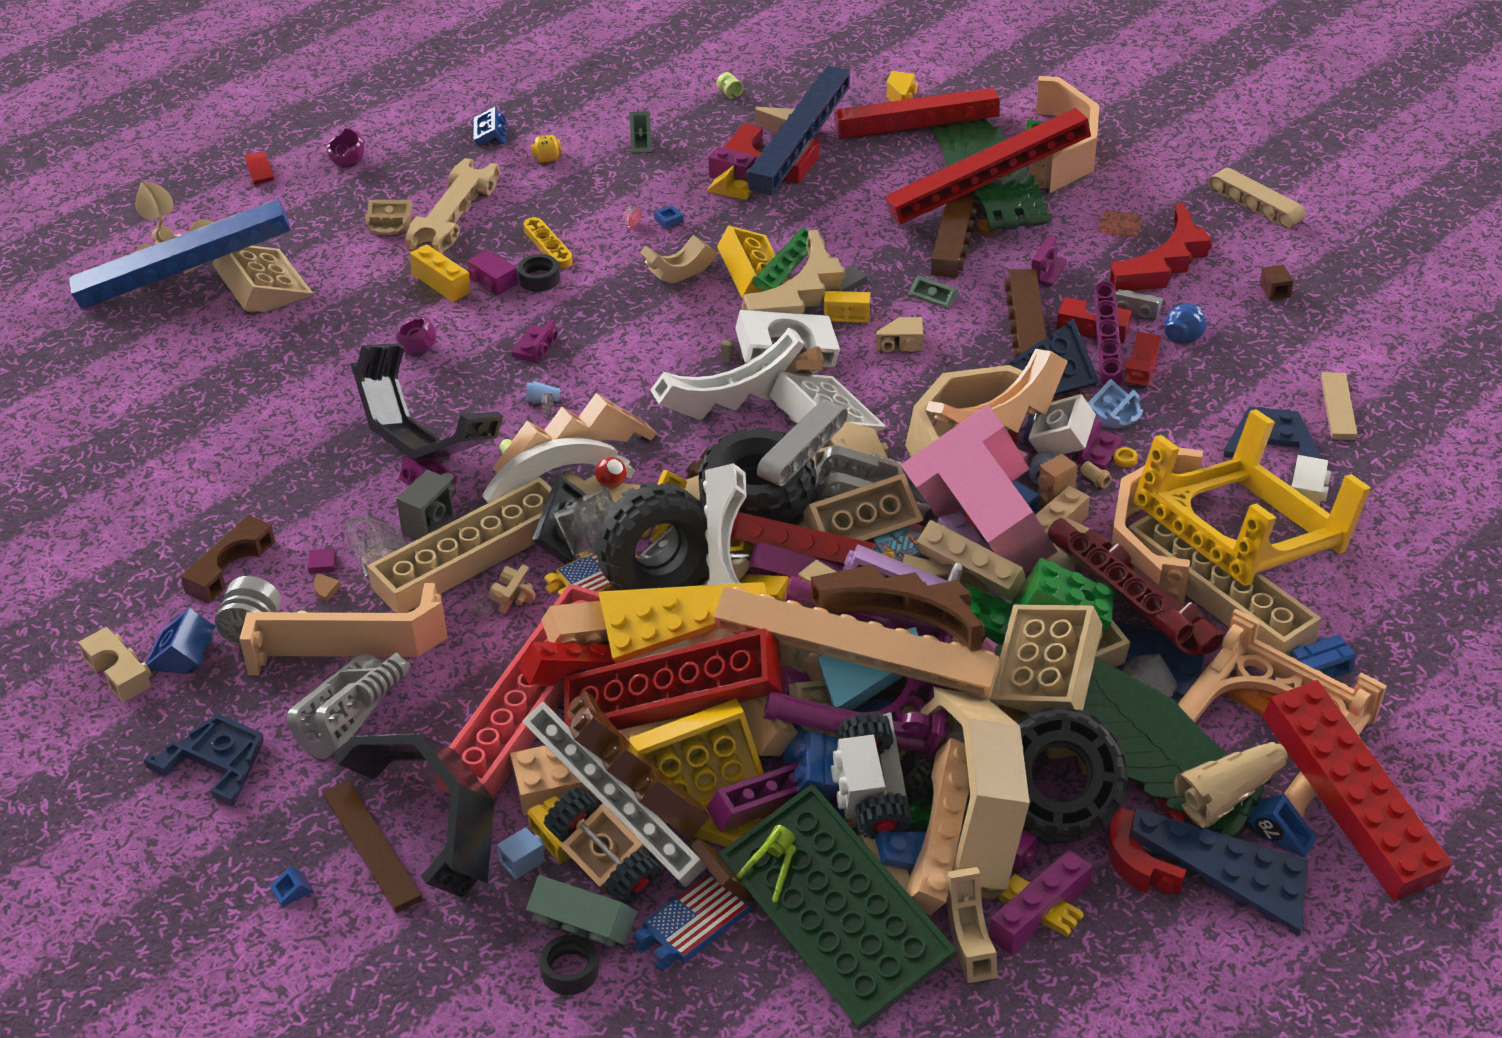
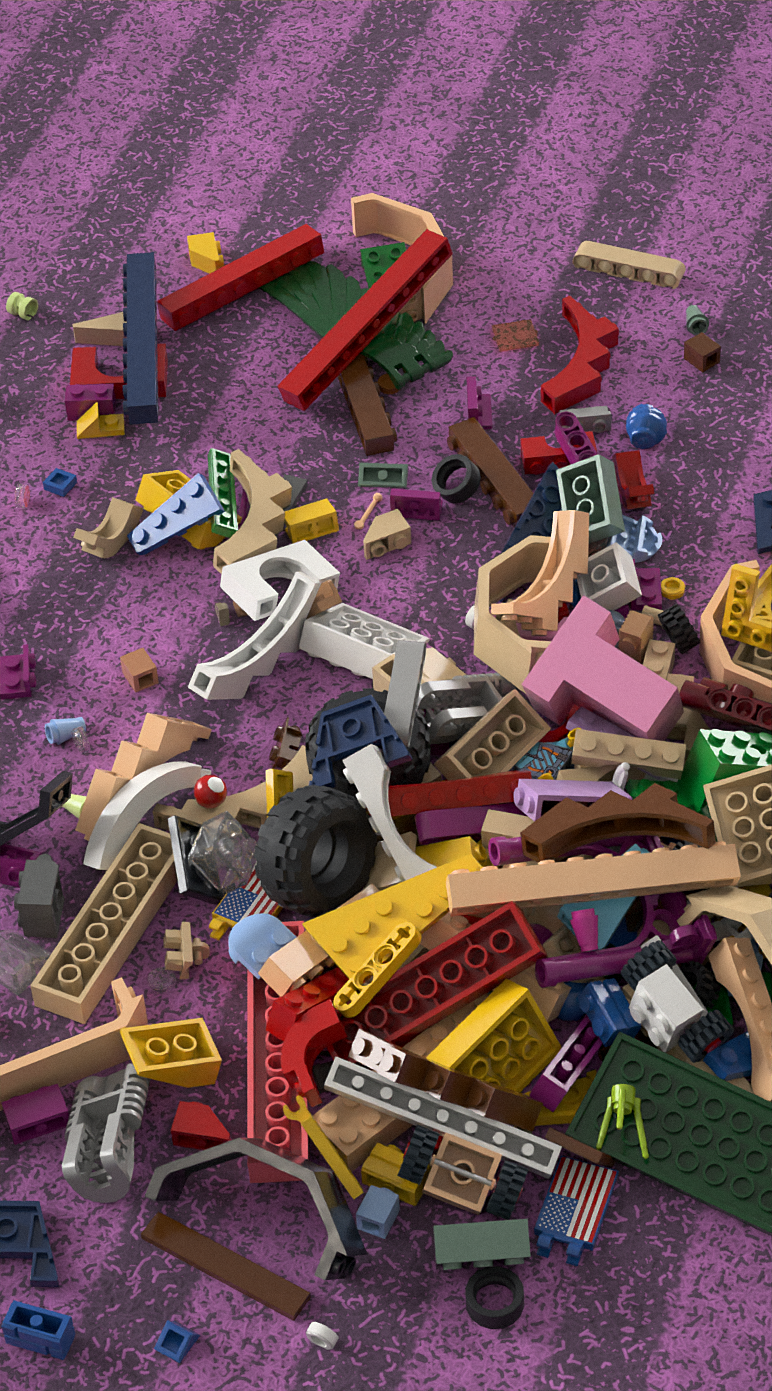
camera: 25 degrees left, 5 degrees up
(186, 829) = (38, 1330): none -> blue brick
(307, 665) = (35, 1113): none -> magenta brick
(404, 933) = (321, 1335): none -> white tile
(423, 720) = (197, 1127): none -> red slope
(438, 659) = (174, 1052): none -> yellow slope
(500, 777) = (325, 1147): none -> yellow tile
(544, 684) = (304, 1042): none -> red arch
(561, 591) = (256, 940): none -> light blue slope
(630, 369) = (139, 669): none -> nougat brick
(632, 649) = (381, 972): none -> yellow beam
(738, 260) = (183, 510): none -> wing
(746, 450) = (349, 730): none -> dark blue wing
(828, 681) = (585, 928): none -> dark pink cone
(917, 307) = (360, 523): none -> light nougat hinge
(942, 319) = (416, 503): none -> magenta bracket
(984, 302) = (446, 468): none -> black tyre
(1090, 355) = (593, 489): none -> sand green brick
(1102, 487) = (678, 629): none -> black tyre
(1288, 257) = (696, 319): none -> sand green cone

